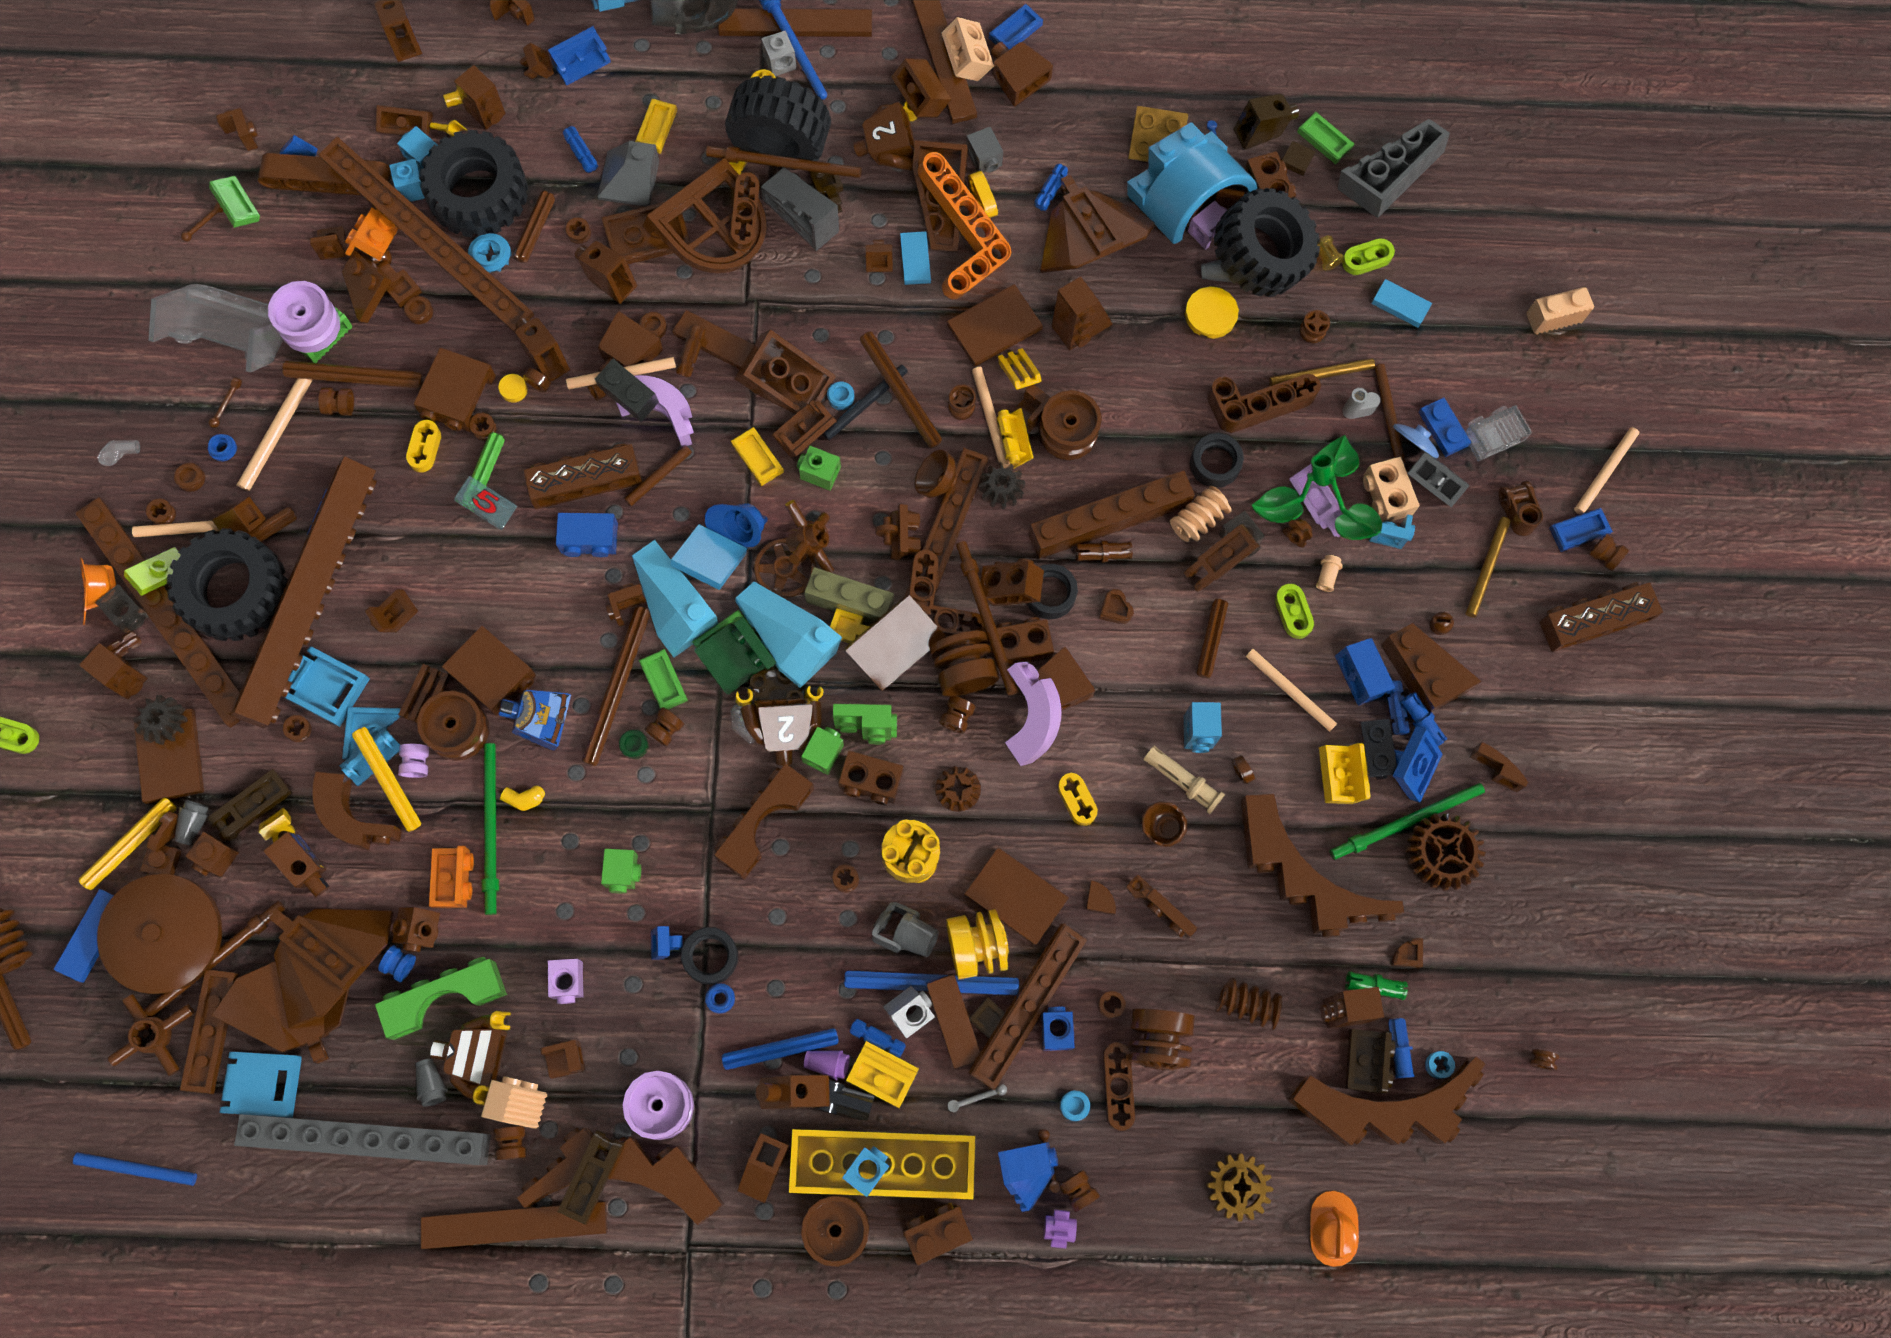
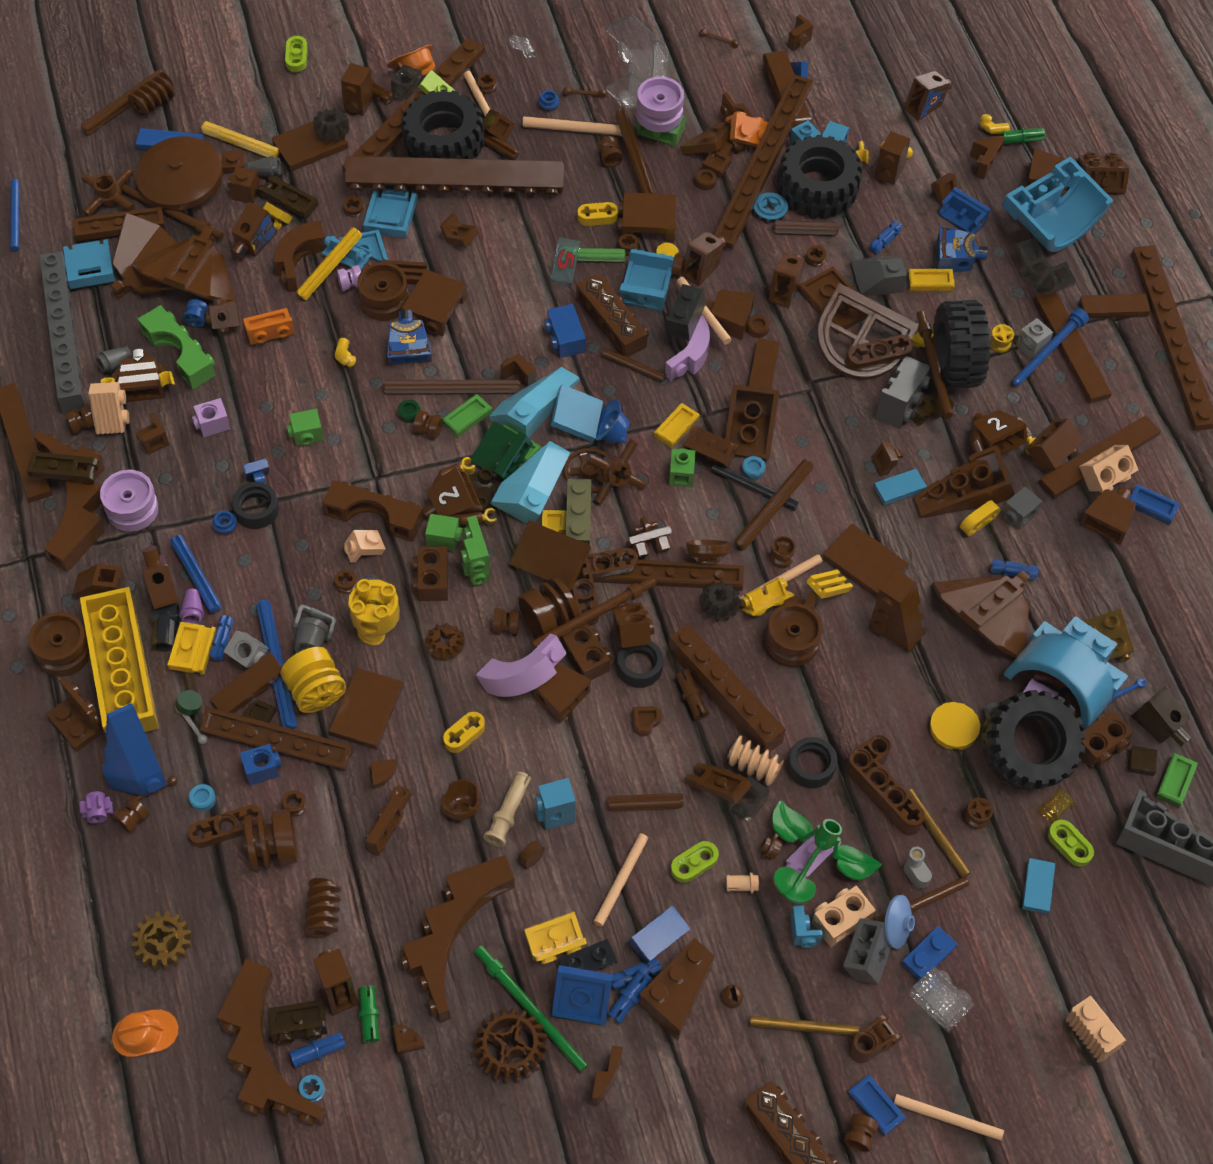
camera: 75 degrees right, 15 degrees down
(165, 832) = (252, 154): reddish brown tile -> none
(189, 477) = (519, 90): reddish brown tile -> none
(234, 201) = (741, 48): bright green tile -> none
(401, 120) = (858, 128): reddish brown slope -> none
(490, 883) = (272, 352): green bar -> none
(545, 422) = (647, 280): none -> dark azure panel
(629, 83) = (958, 250): none -> torso
(690, 350) = (745, 353): reddish brown axle -> none
(805, 845) = (363, 543): none -> light nougat bracket
(853, 1176) = (101, 631): dark azure brick -> none
(952, 1094) = (188, 702): none -> dark green tile
(965, 224) = (941, 508): orange beam -> none

